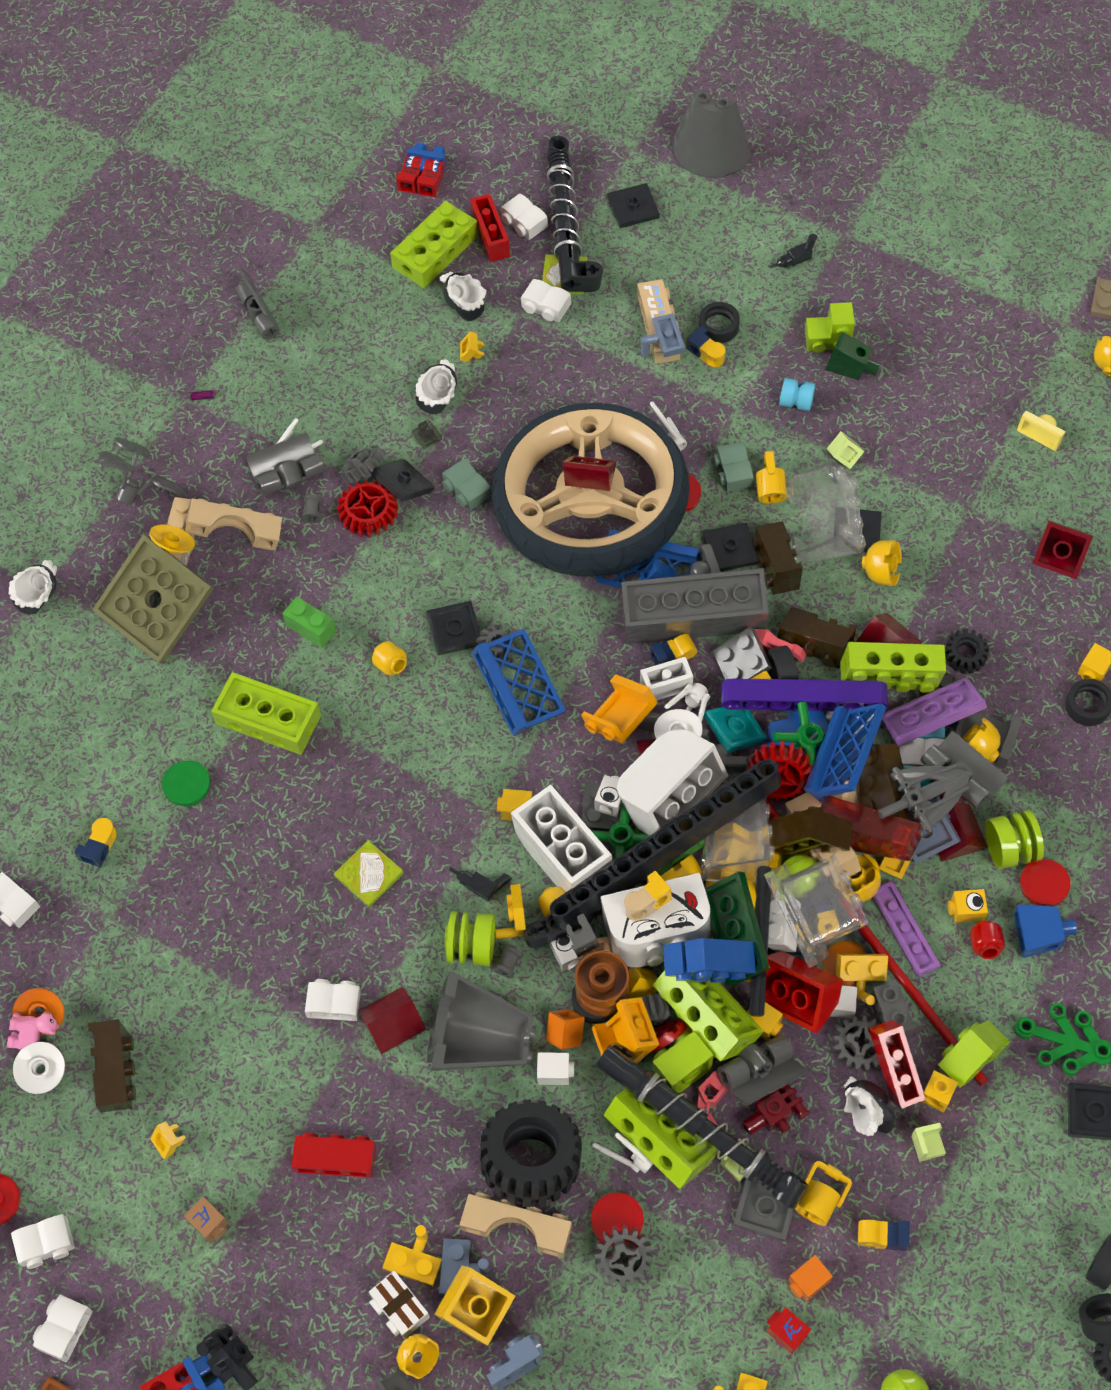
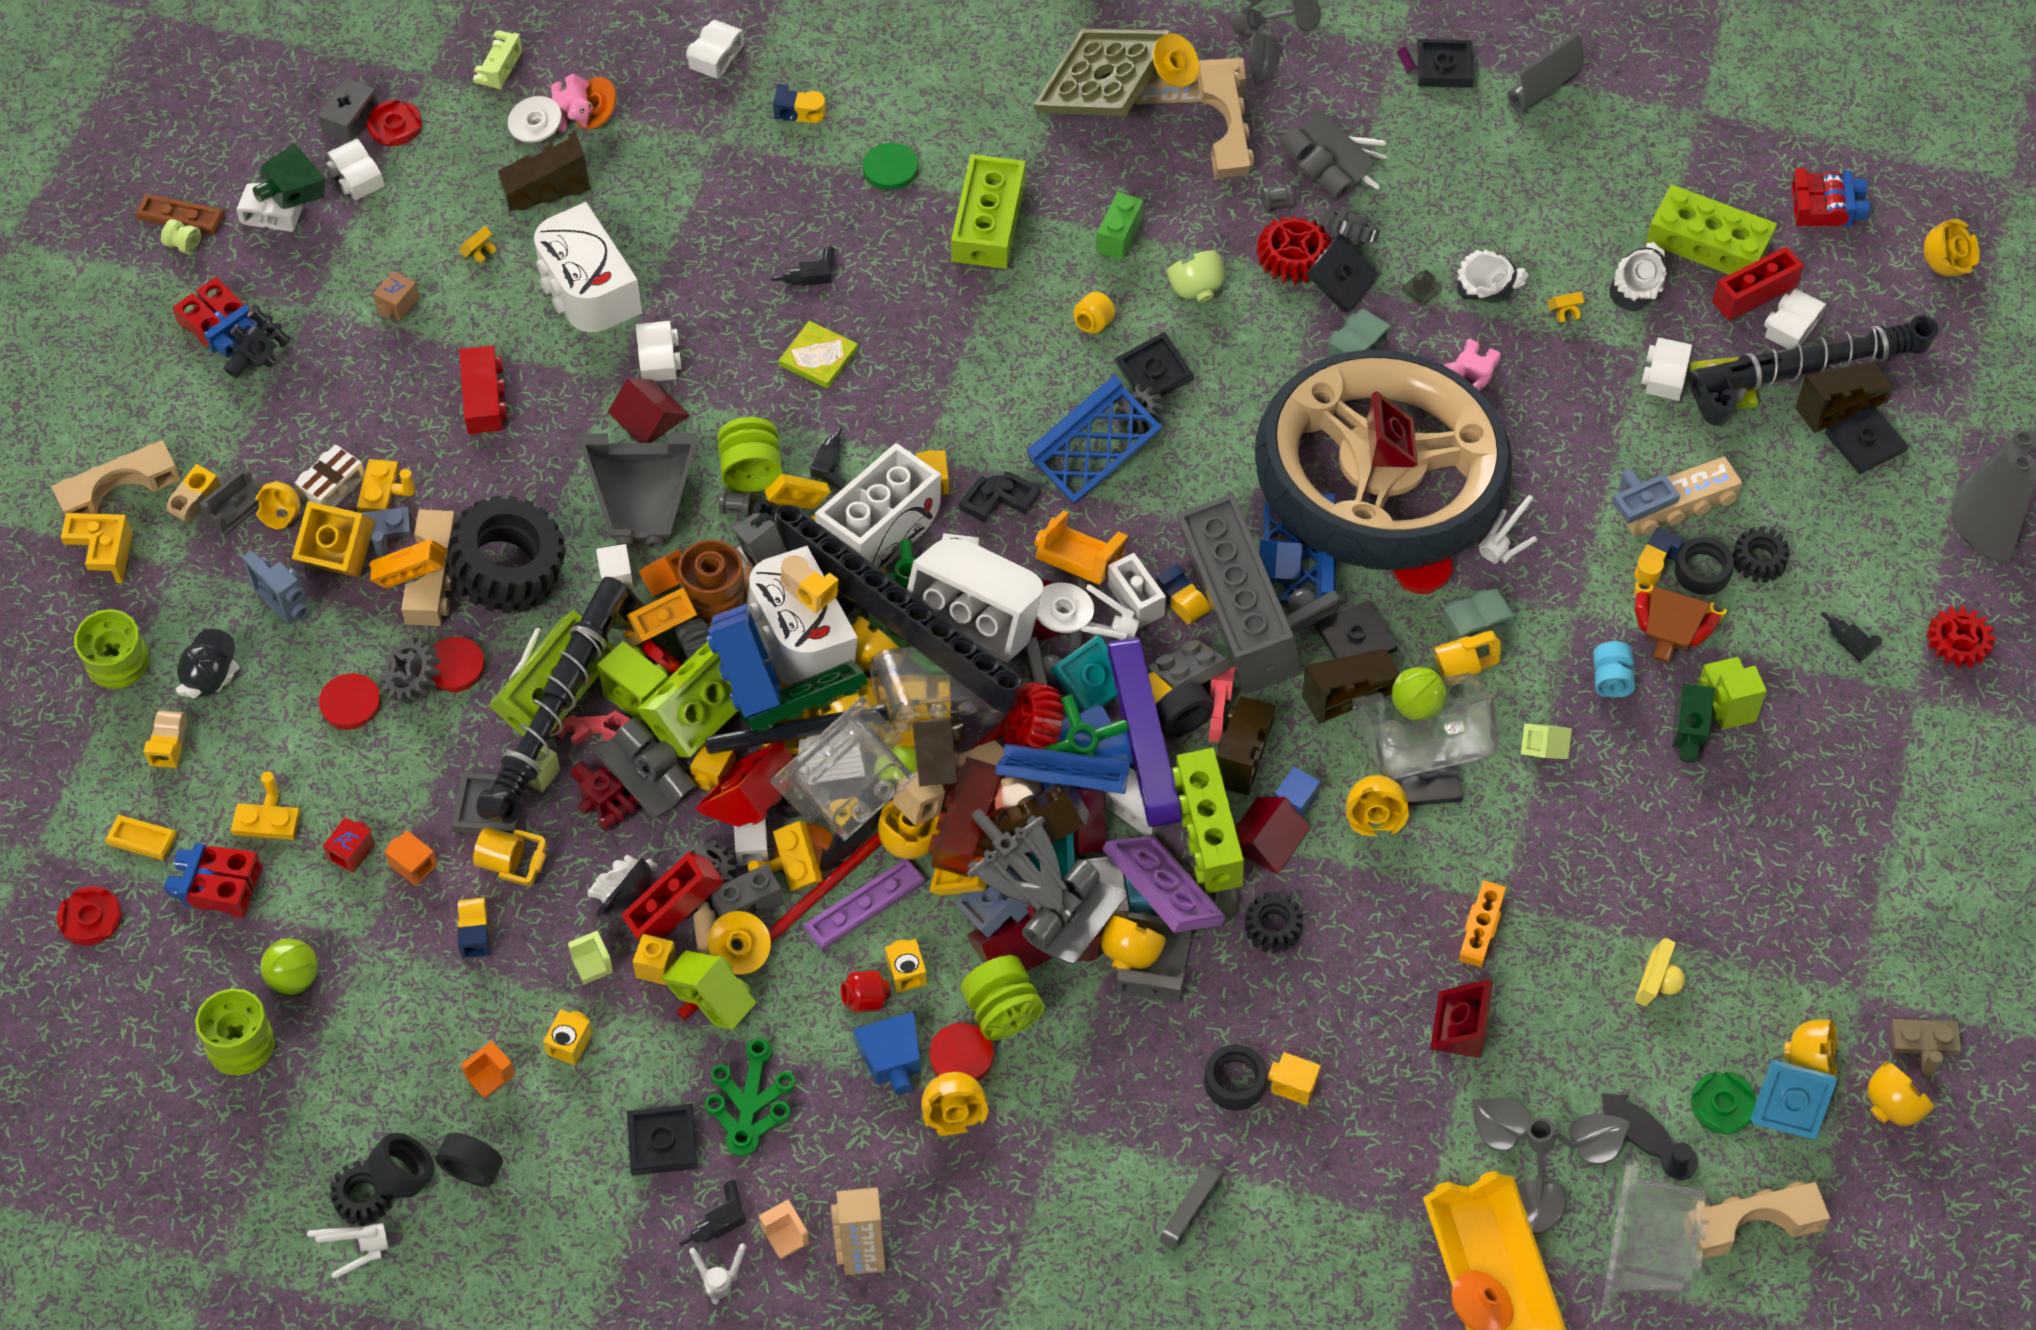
camera: 75 degrees right, 5 degrees down
(50, 1298) = (289, 179): none -> dark green torso
(215, 370) = (1444, 63): none -> black plate
(235, 1044) = (585, 271): none -> white brick
(281, 864) = (810, 271): none -> black piece
(379, 575) = (1198, 276): none -> yellowish green cylinder
(493, 113) = (1951, 249): none -> yellow cylinder
(510, 417) = (1475, 367): none -> bright pink animal
(517, 1241) = (408, 563): none -> light orange piece
(542, 758) = (1005, 488): none -> black plate
(598, 206) = (1840, 393): none -> dark brown wedge
(636, 1315) = (349, 701): none -> red tile
(721, 278) = (1768, 542): none -> black tyre
(763, 350) = (1673, 620): none -> dark orange torso
(799, 513) = (1419, 693): none -> lime piece
(809, 196) = (1961, 635): none -> red gear
(862, 609) = (1299, 790): none -> panel
(925, 1050) = (703, 921): none -> tan cylinder
(936, 1023) = (746, 929): none -> yellow dish
(980, 517) = (1479, 915): none -> light orange piece
(997, 1170) = (568, 1036): none -> yellow brick
(1018, 1239) = (488, 1069): none -> orange panel
(1091, 891) = (953, 1099): none -> yellow cylinder

